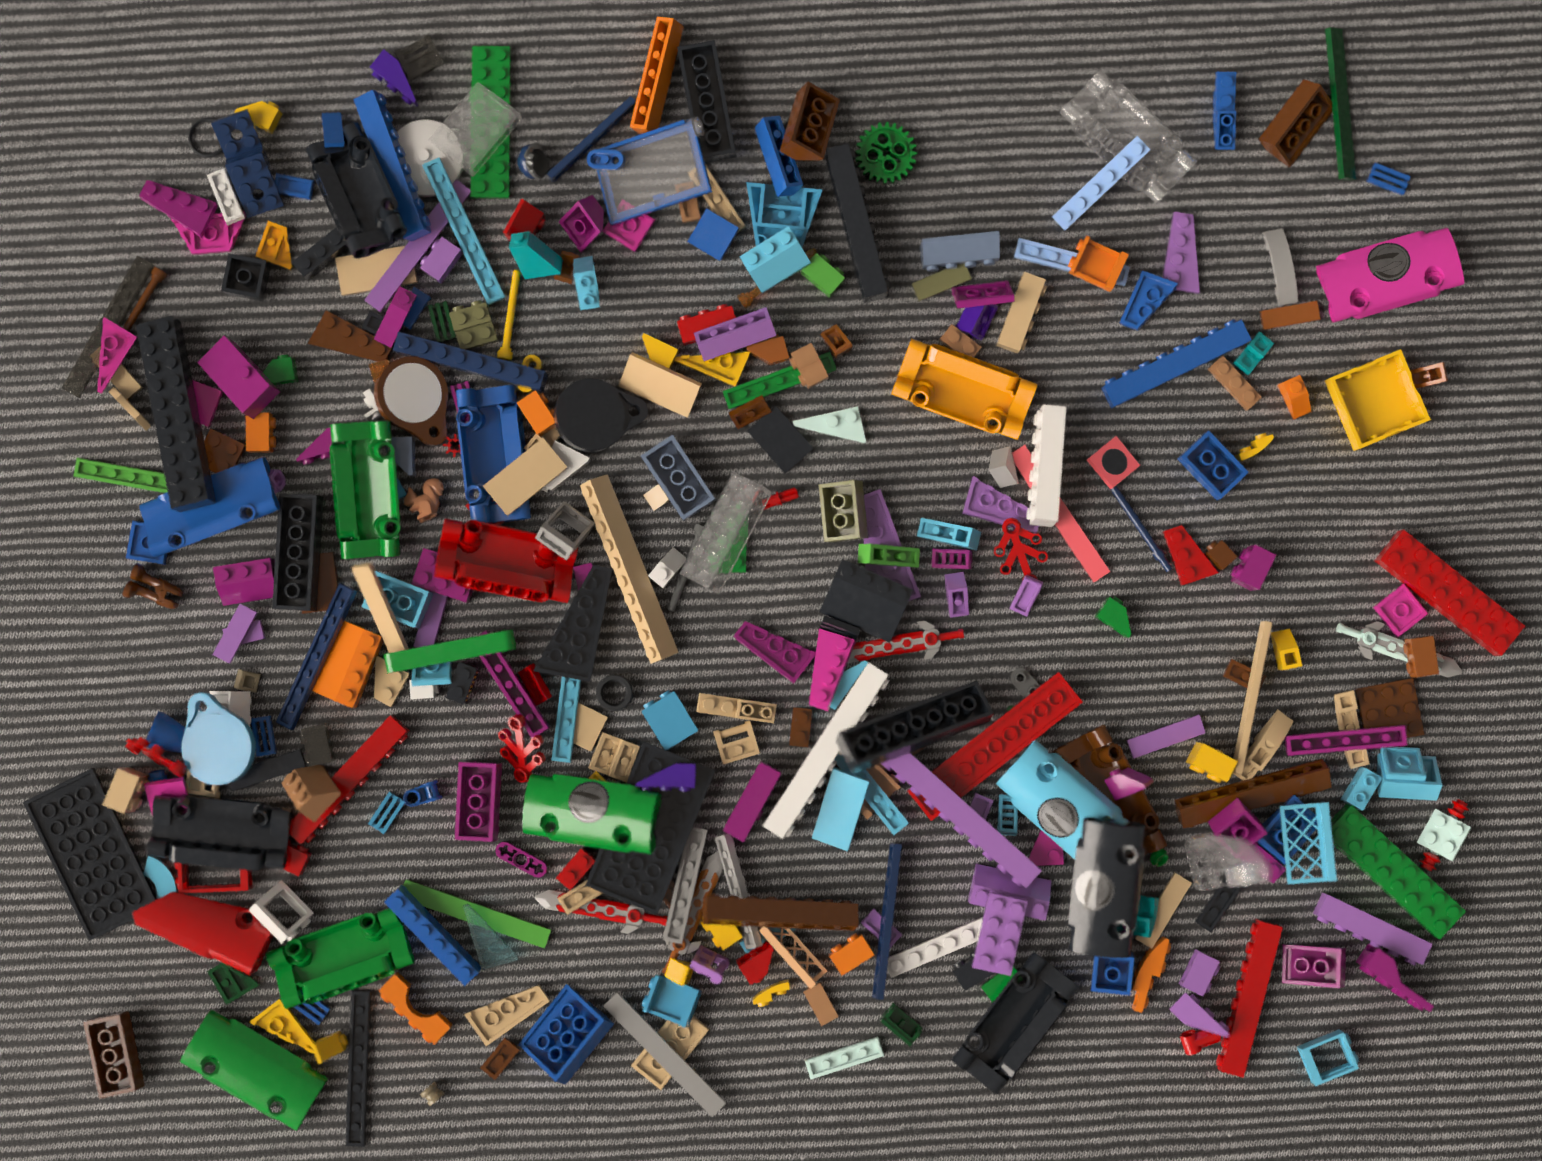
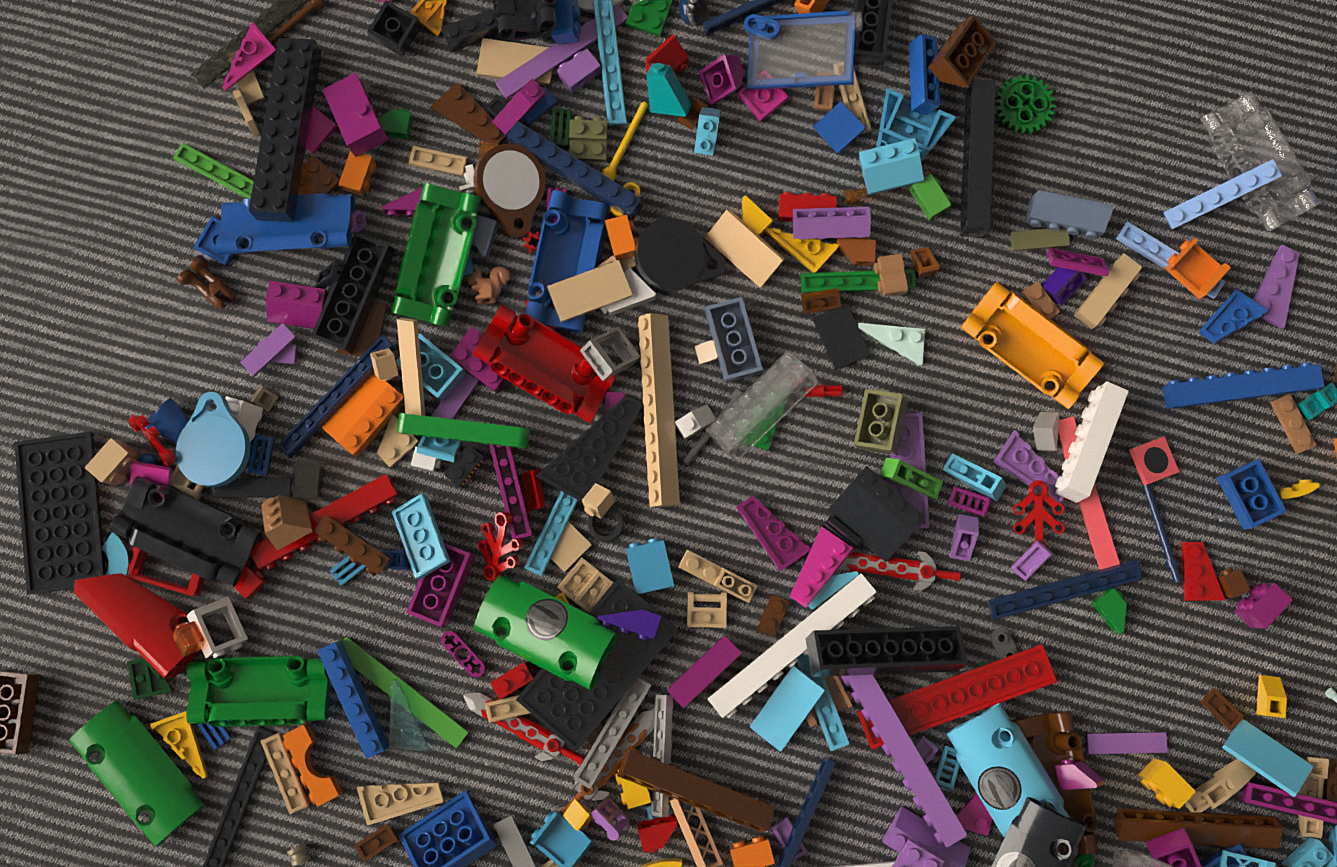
camera: 25 degrees right, 5 degrees down
(259, 930) = (188, 638): none -> clear orange brick
(269, 542) = (328, 274): none -> black tile
(329, 1046) = (216, 774): yellow slope -> none
(334, 394) = (438, 161): none -> tan tile
(352, 612) = (384, 364): none -> tan brick
(385, 793) = (354, 545): none -> reddish brown brick
(392, 1024) = (285, 773): none -> tan tile
(443, 763) = (420, 536): none -> medium azure tile
(600, 675) = (598, 501): none -> tan brick
(1066, 612) = (1065, 589): none -> dark blue tile
(1252, 695) = (1226, 729): tan tile -> none
(1297, 707) = (1268, 757): none -> medium azure tile

